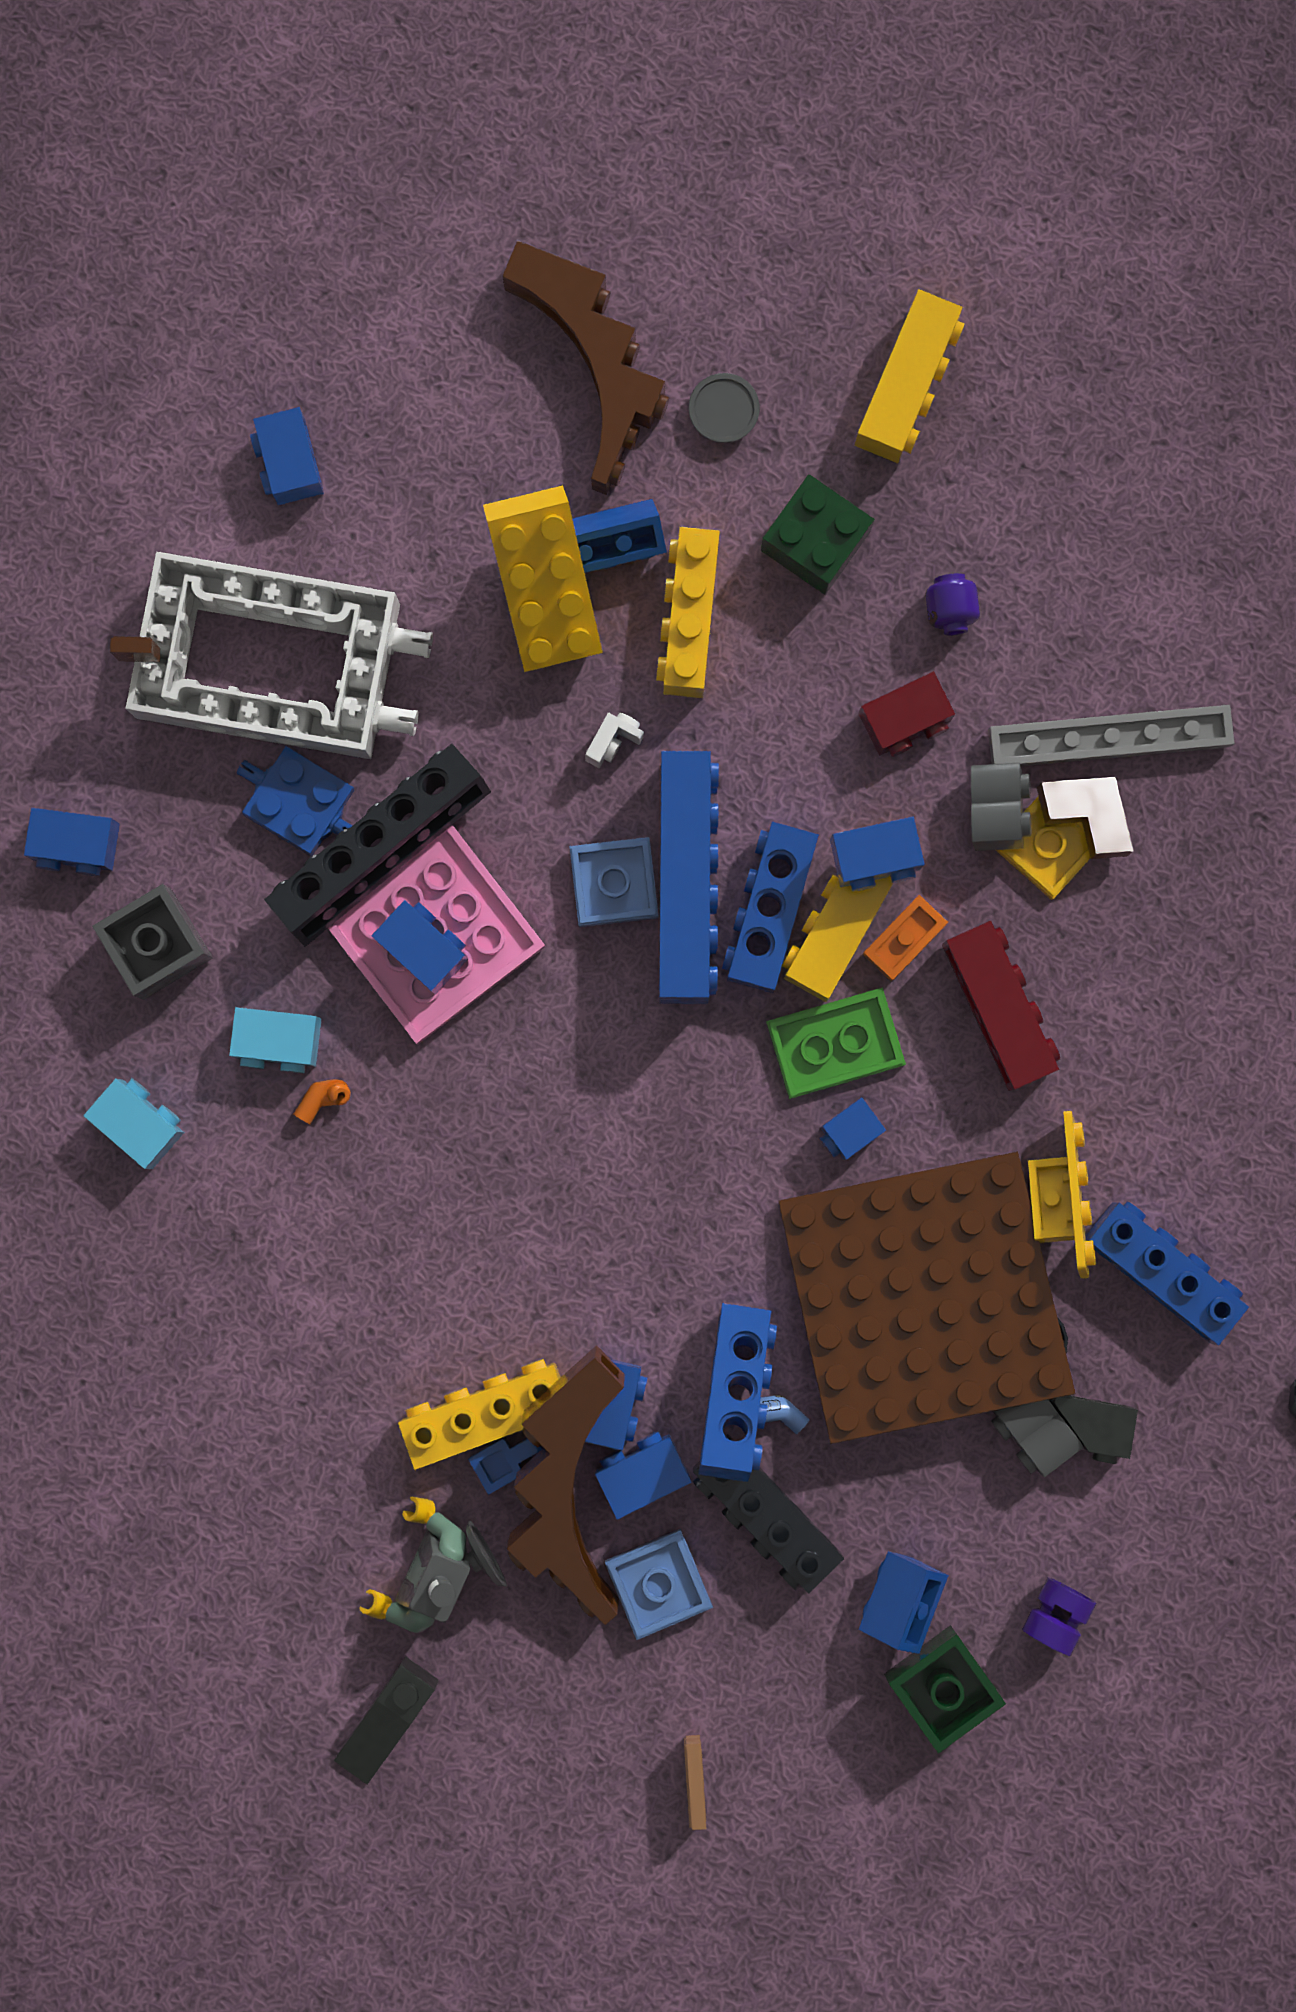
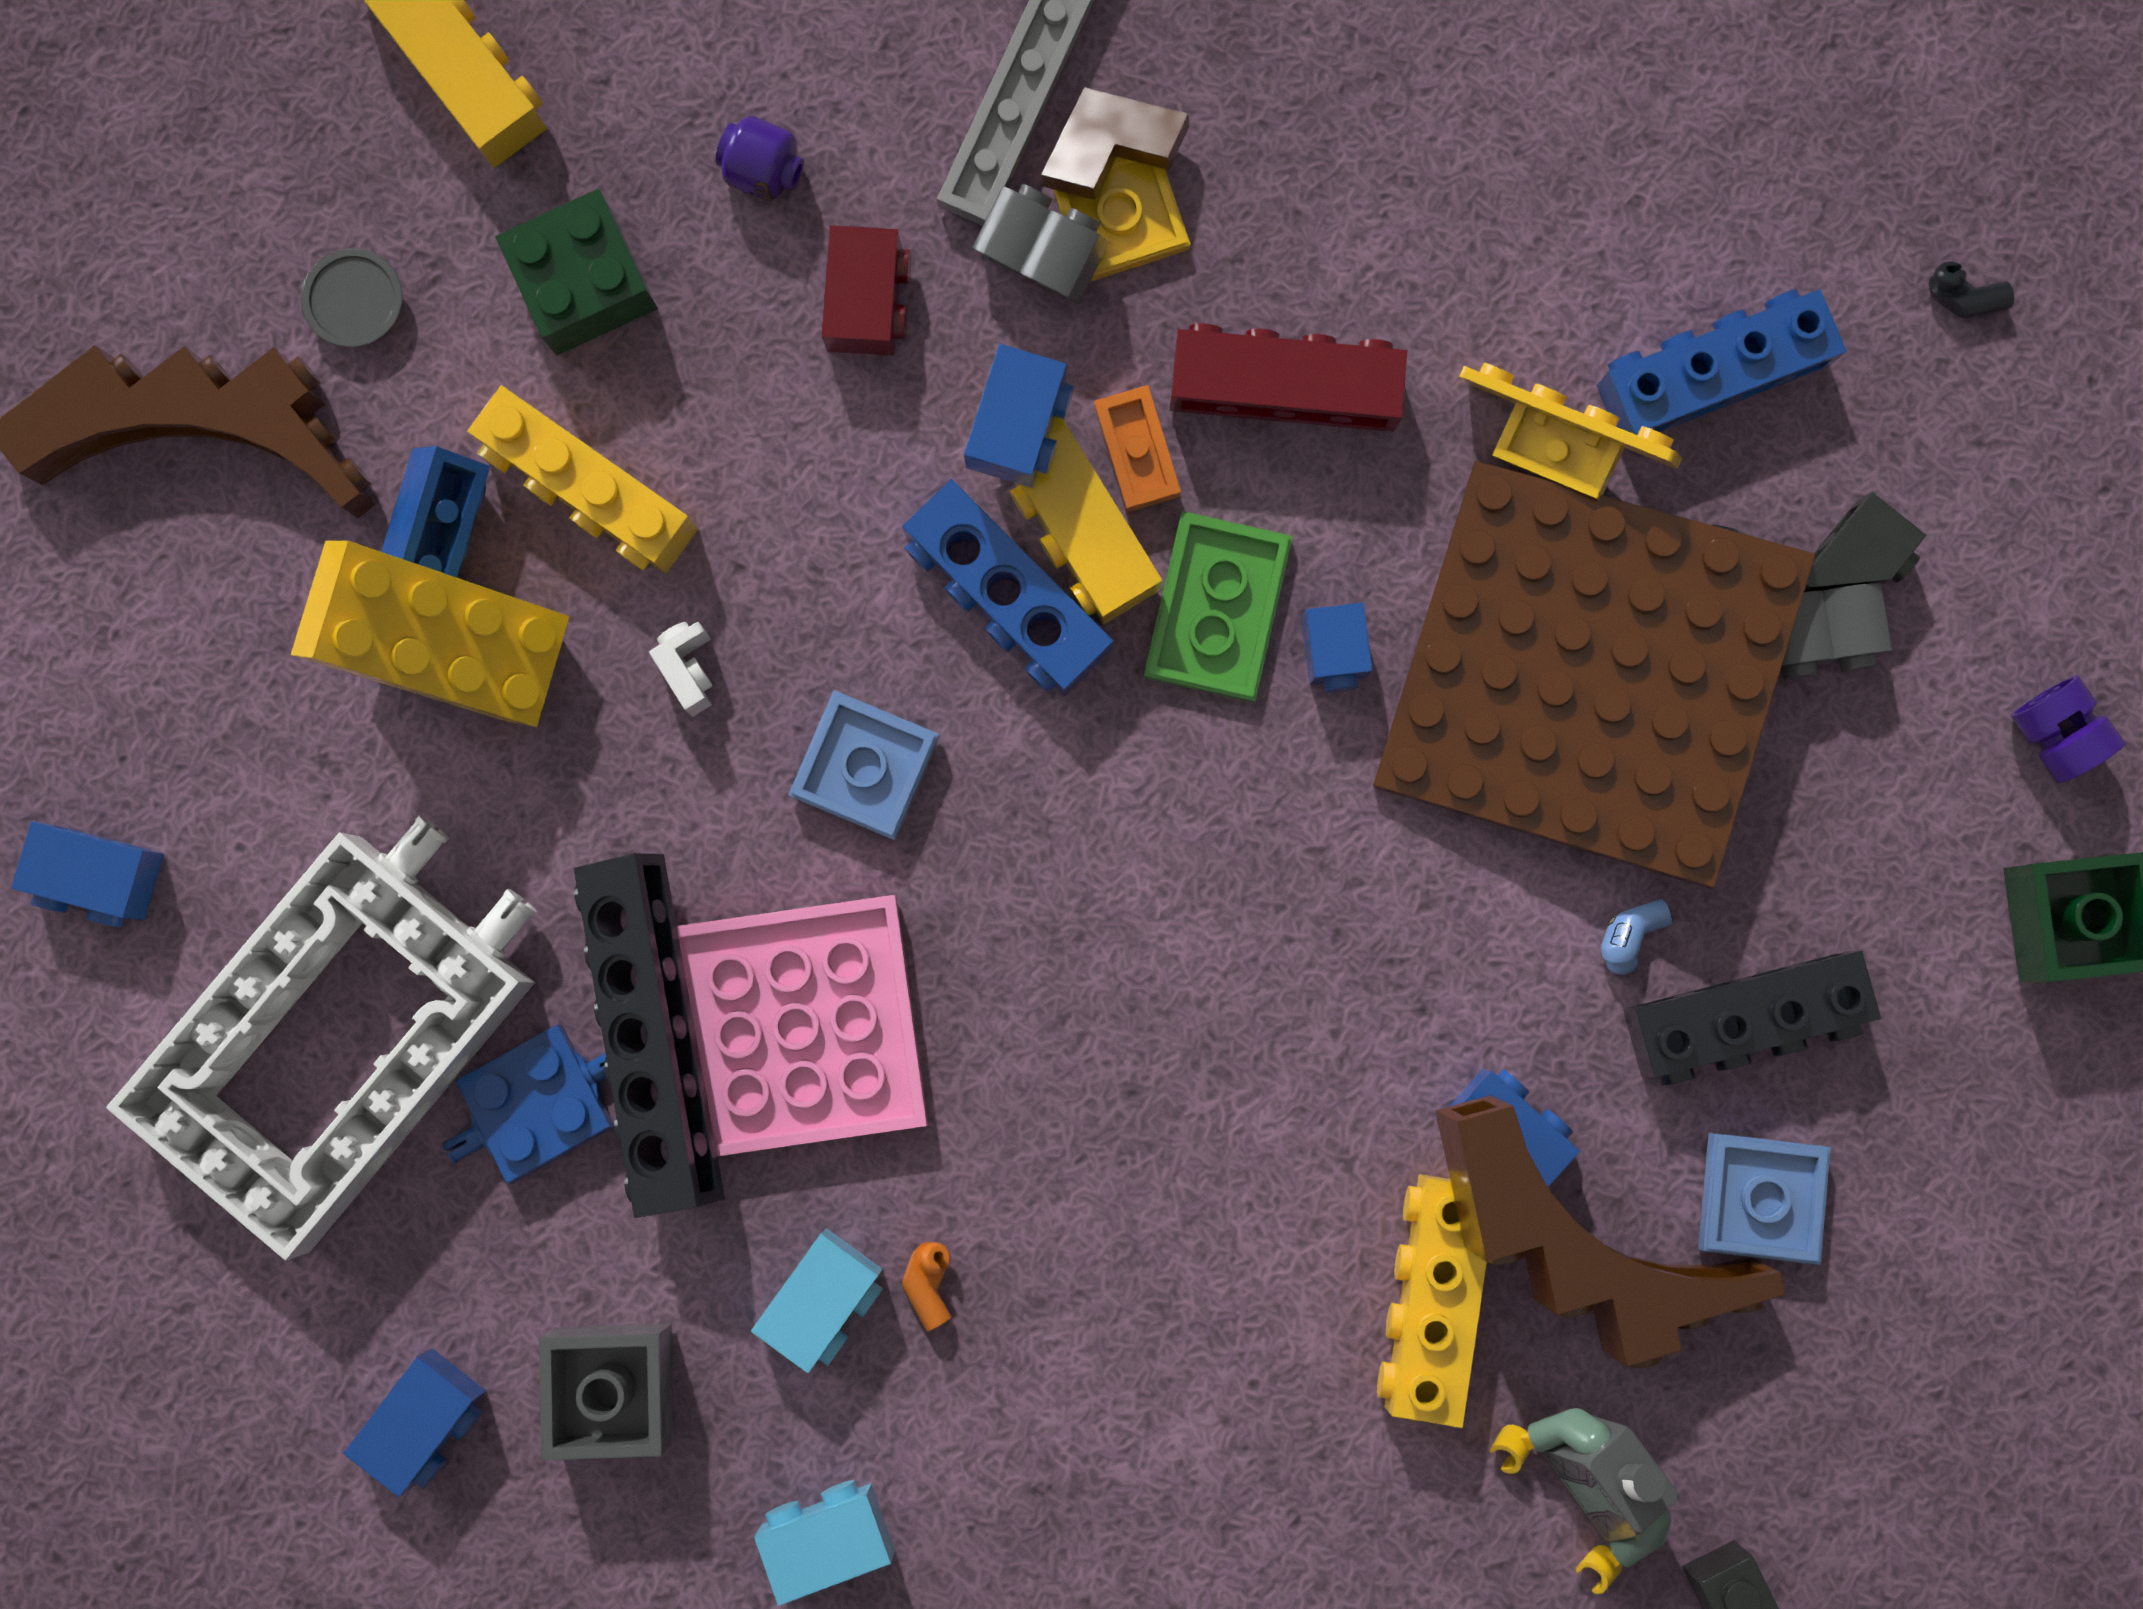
camera: 60 degrees left, 0 degrees up
(134, 649) = (214, 1206): reddish brown tile -> none
(420, 946) = (807, 1051): blue brick -> none
(481, 1556) = (1616, 1401): dark grey piece -> none
(500, 1462) = (1509, 1313): blue plate -> none
(642, 1474) = (1620, 1143): blue brick -> none
(685, 873) = (909, 670): blue brick -> none
(695, 1782) = (2033, 1290): medium nougat tile -> none
(720, 1455) = (1652, 1034): blue brick -> none
(903, 1602) = (1951, 909): blue brick -> none

